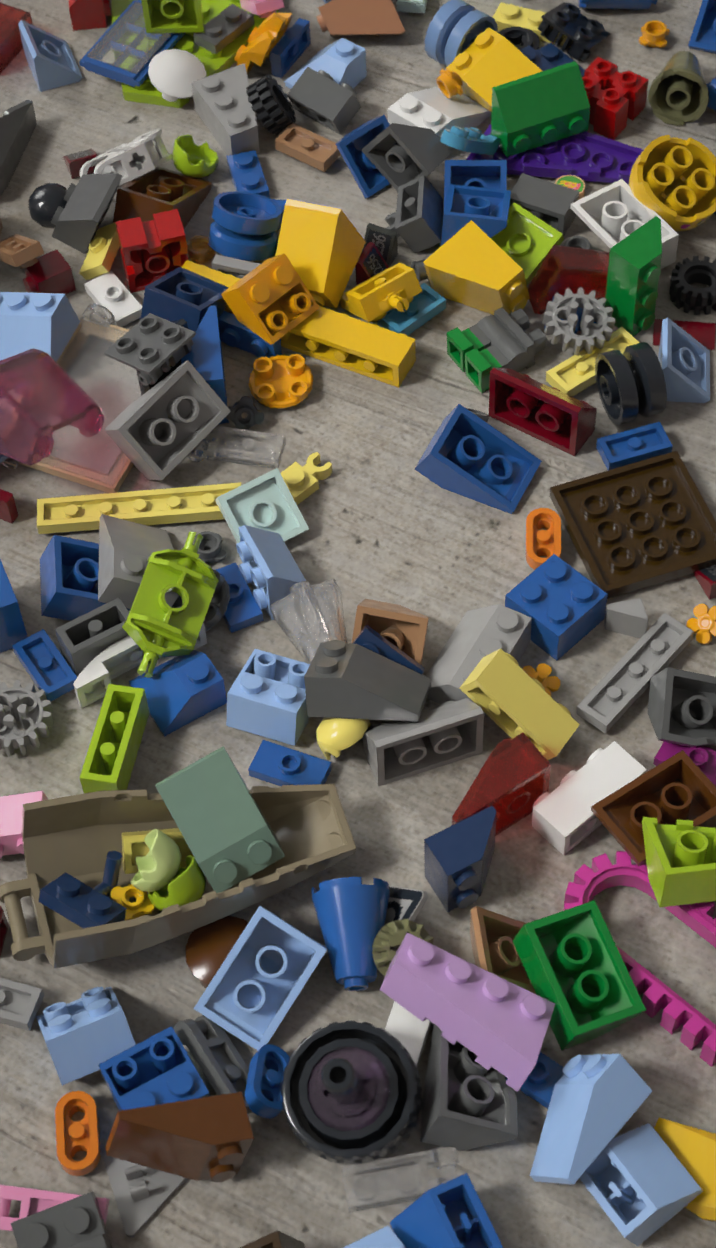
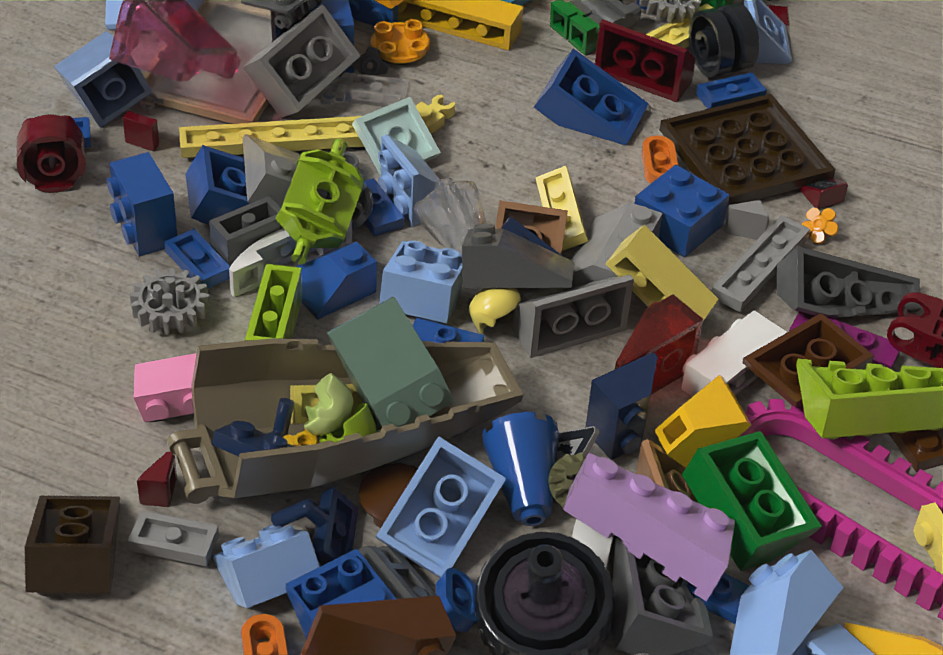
camera: 10 degrees left, 10 degrees down
(154, 990) = (333, 519): none -> dark blue plate
(430, 598) = (558, 192): none -> light yellow plate
(539, 883) = (703, 420): none -> yellow slope

